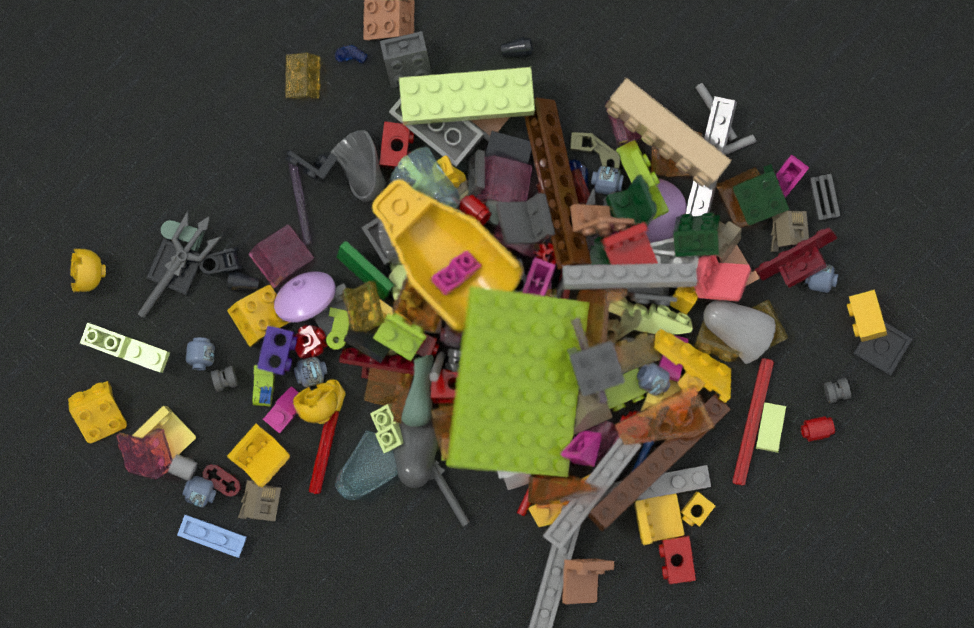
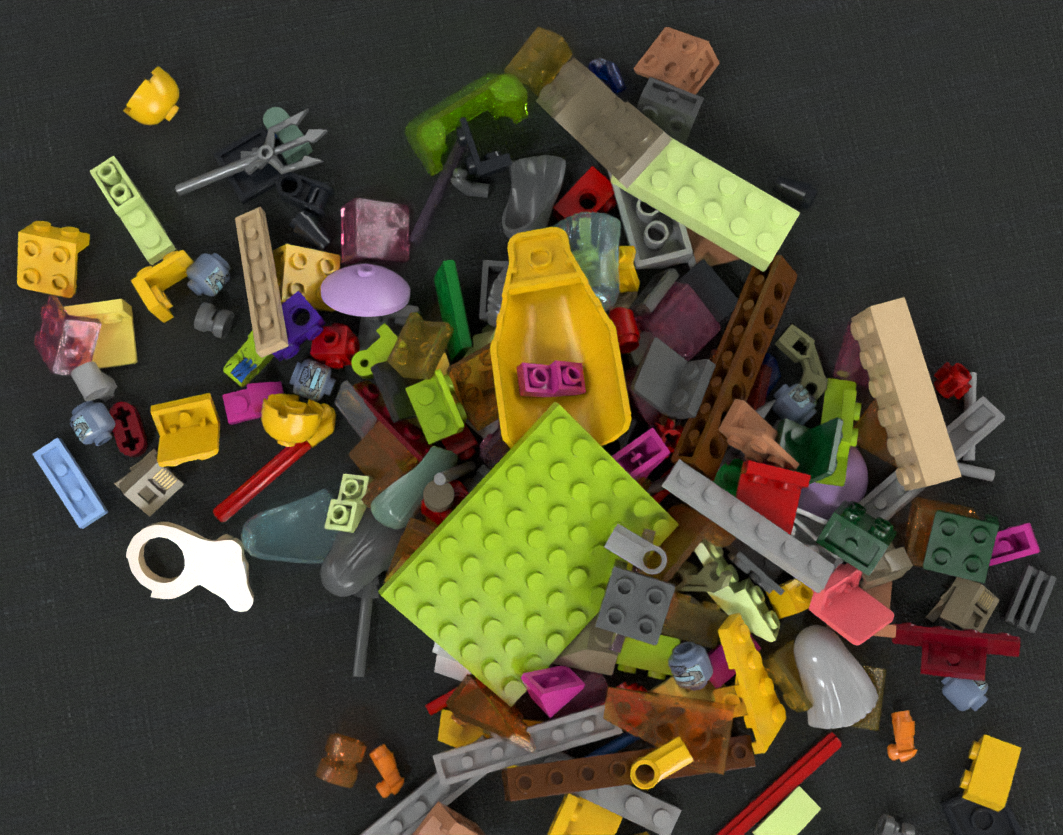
camera: 35 degrees right, 5 degrees down
(171, 380) = (154, 280): none -> yellow bracket
(239, 335) = (261, 283): none -> tan tile
(266, 168) = (494, 92): none -> clear neon green windscreen
(322, 184) = (468, 187): none -> dark grey arm
(332, 522) = (210, 563): none -> animal
(350, 371) = (355, 409): none -> clear piece
(393, 99) = (602, 122): none -> dark tan bracket
(439, 388) = (438, 497): none -> dark tan tile
(490, 570) = (345, 749): none -> clear orange wheel
(518, 562) = (386, 765): none -> orange arm
(573, 337) = (633, 548): none -> light grey piece
(675, 443) = (664, 762): none -> yellow piece
(690, 98) = (952, 380): none -> red gear
(803, 327) = (904, 732): none -> orange arm

